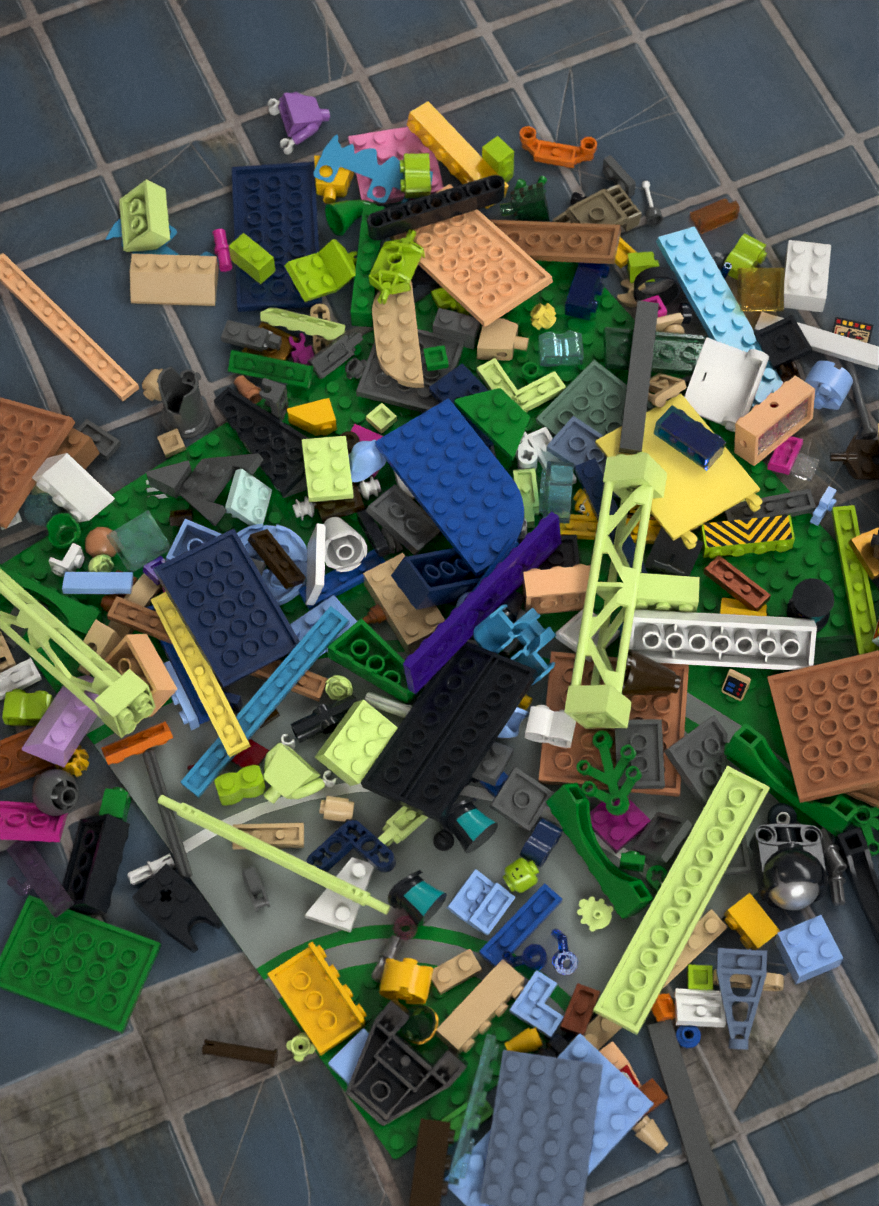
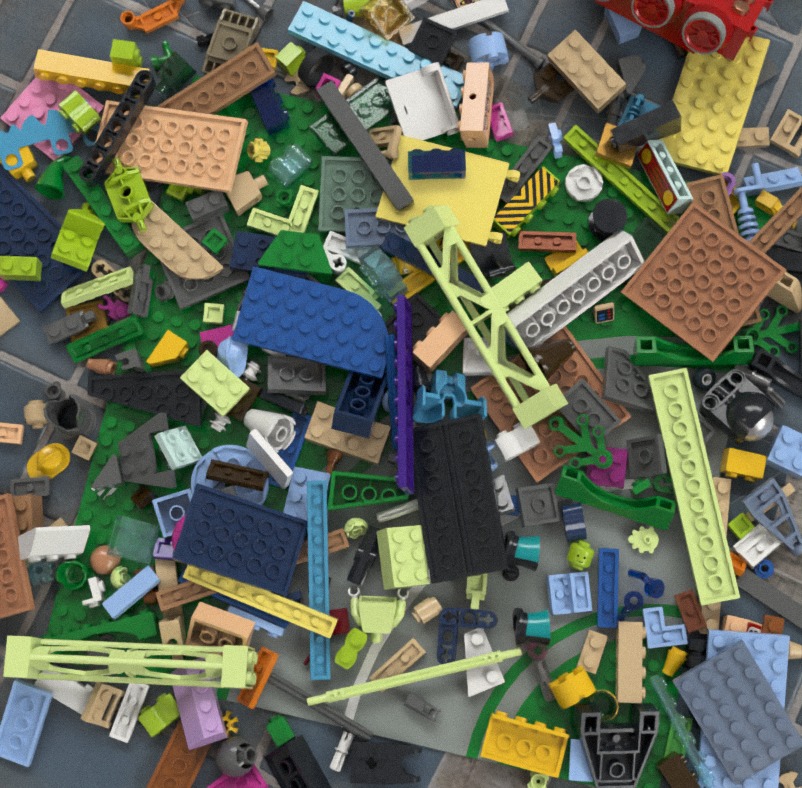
camera: 40 degrees left, 15 degrees up
(133, 431) = (48, 461): none -> yellow piece
(818, 561) = (583, 183): none -> white tile

